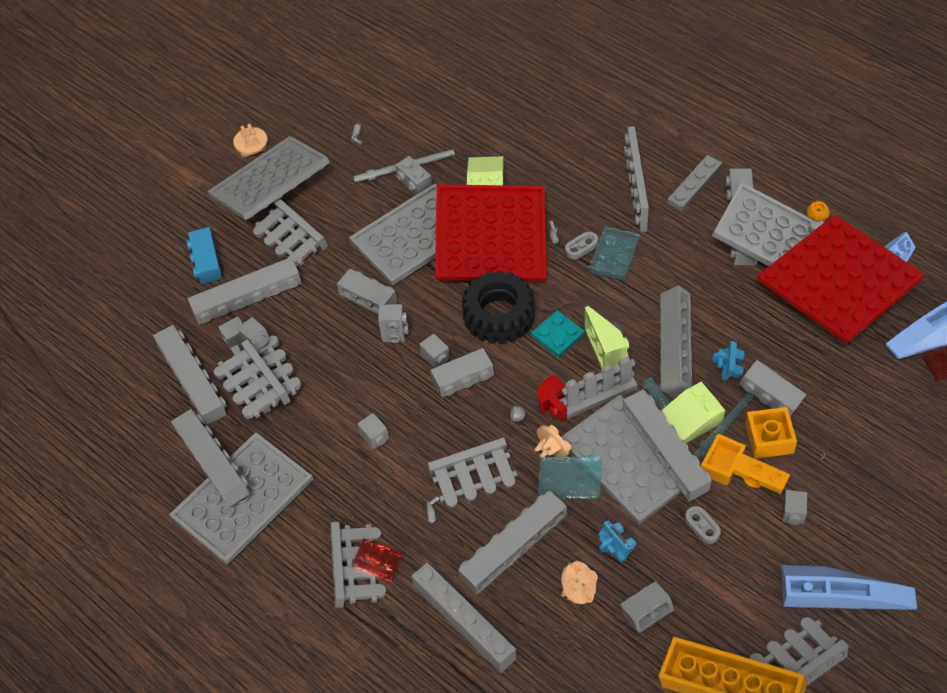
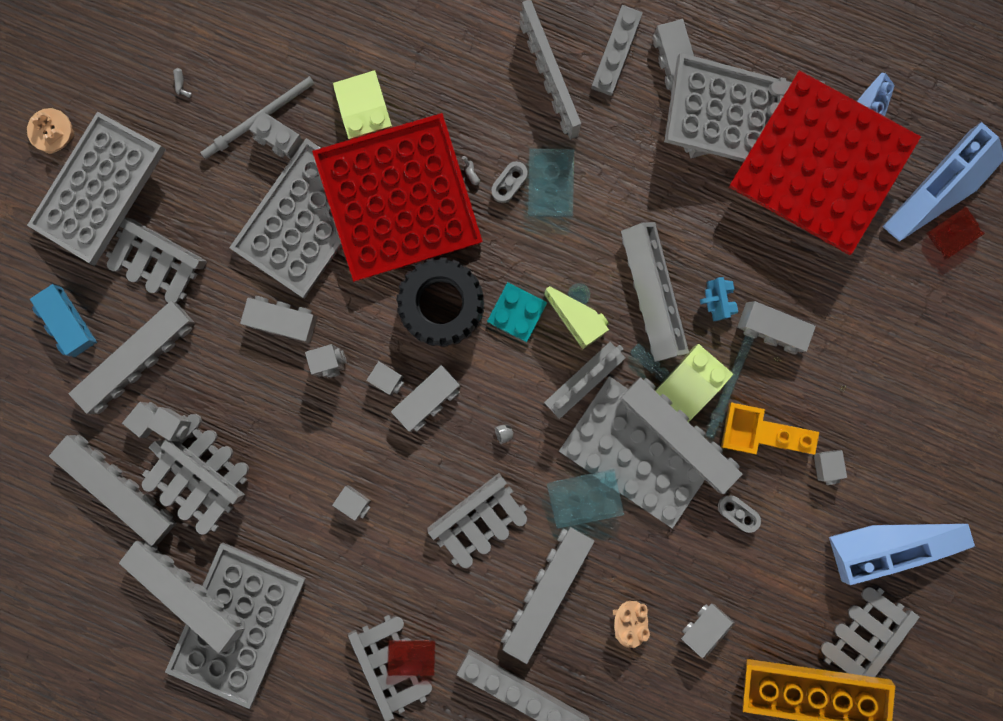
camera: 20 degrees left, 30 degrees up
(430, 510) = (448, 581): light grey piece -> none
(548, 398) = (531, 401): red brick -> none
(551, 442) = (554, 469): light nougat plate -> none
(614, 542) = (651, 563): dark azure hips -> none
(770, 433) = (787, 384): light orange brick -> none
(818, 211) = (768, 62): light orange plate -> none

